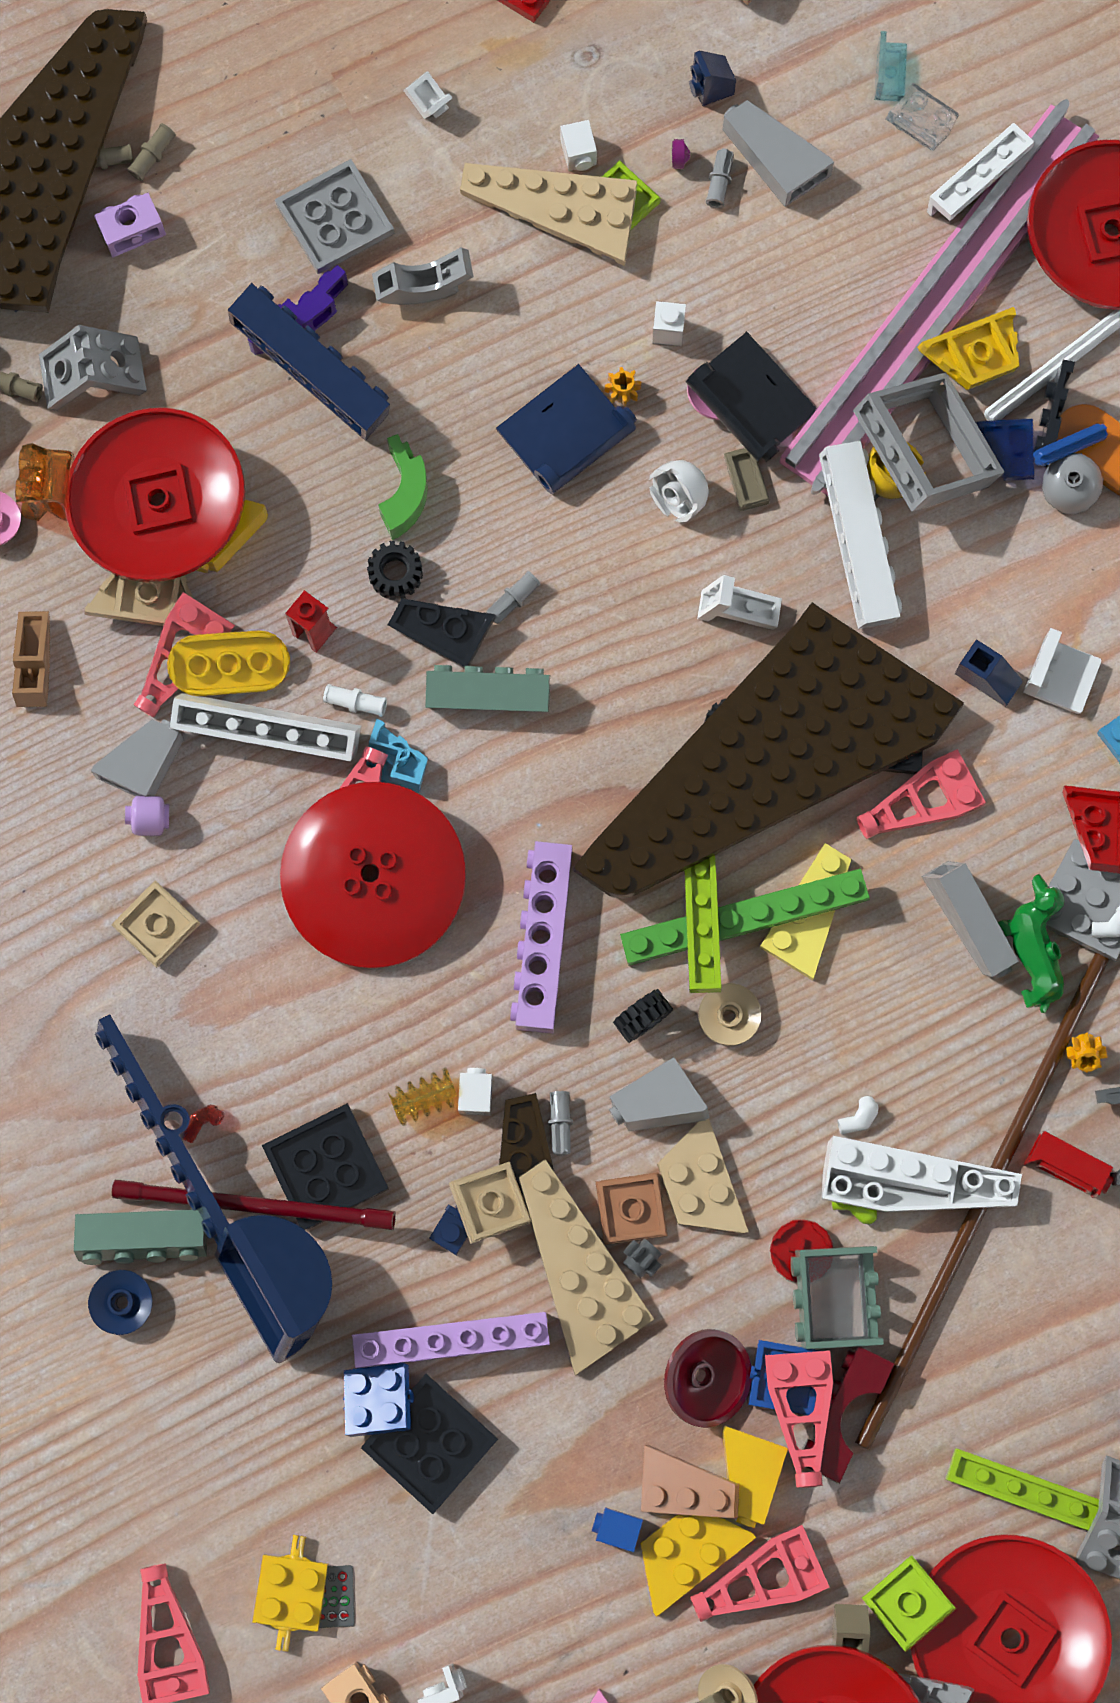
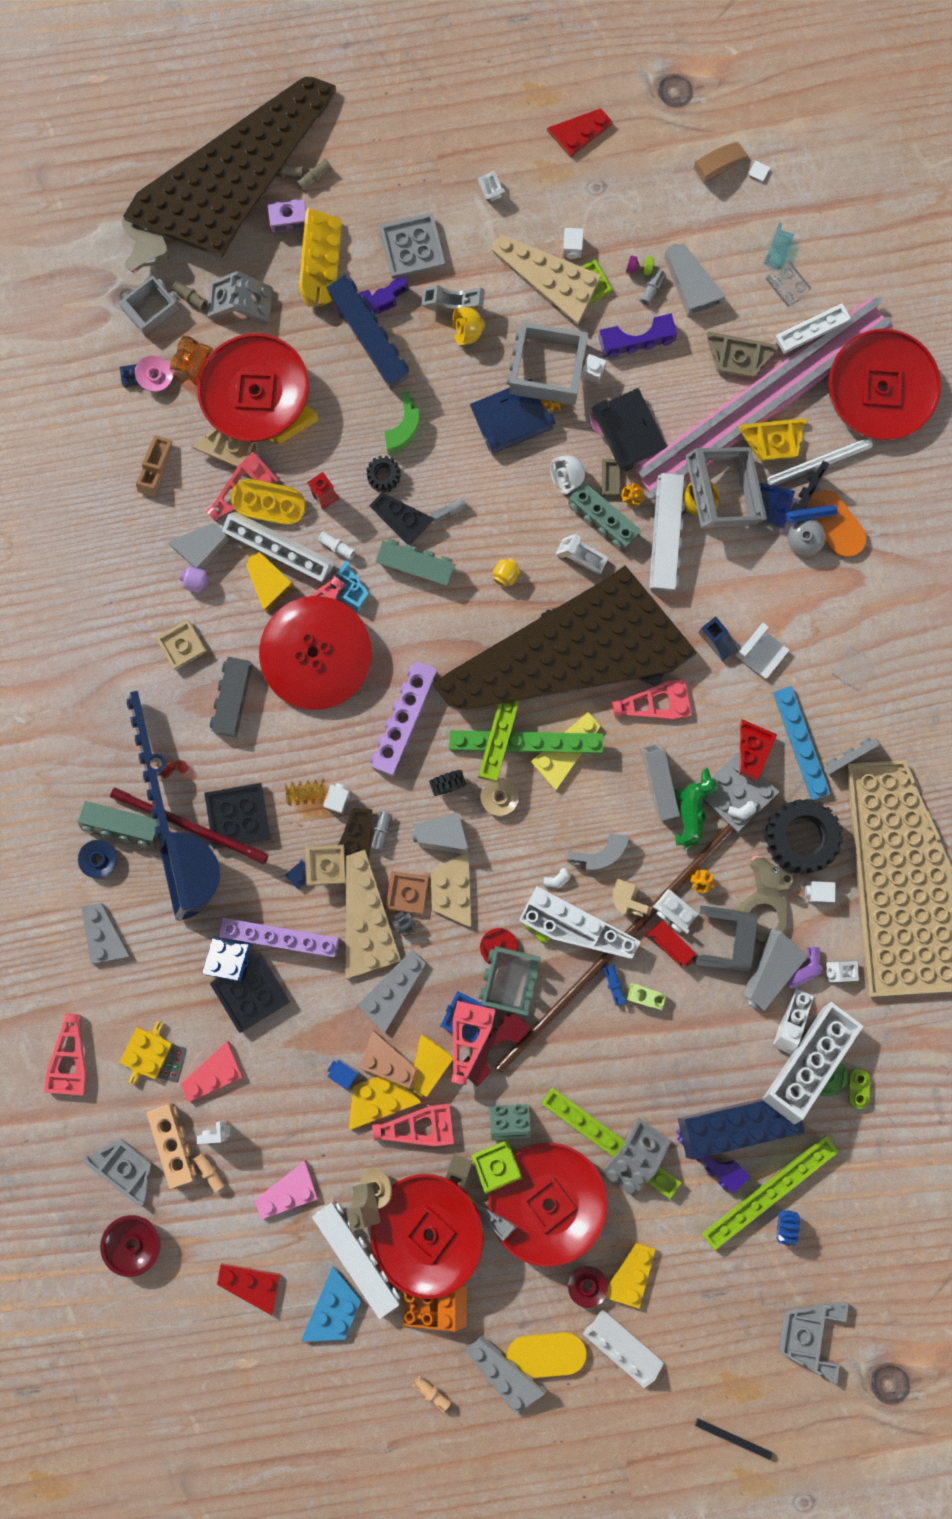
camera: 20 degrees right, 5 degrees up
(163, 1424) = (102, 937): none -> light grey wing
(197, 272) = (319, 257): none -> yellow plate
(260, 982) = (231, 697): none -> dark grey brick
(263, 785) = (267, 581): none -> yellow slope
(408, 1595) = (213, 1074): none -> coral wing
(456, 310) = (468, 325): none -> yellow cylinder
(603, 375) = (541, 390): none -> light grey window
(631, 666) = (506, 572): none -> yellow head
(642, 1394) = (387, 997): none -> light grey wing
(689, 273) = (615, 341): none -> dark purple arch
(703, 148) = (648, 266): none -> lime tile
(711, 77) = (666, 222): dark blue slope -> none
(721, 1380) = (424, 1012): dark red dish -> none
(755, 539) = (603, 516): none -> sand green brick
(789, 493) = (633, 495): none -> light orange gear
(882, 241) = (739, 355): none -> dark tan wing
(908, 1525) = (510, 1122): none -> sand green bracket
(931, 1048) = (612, 851): none -> light grey arch
(974, 1115) = (624, 899): none -> tan brick
(1002, 1255) = (615, 985): none -> blue pin
(1056, 1259) = (646, 996): none -> yellowish green leg
(1059, 1111) = (676, 911): none -> white bracket

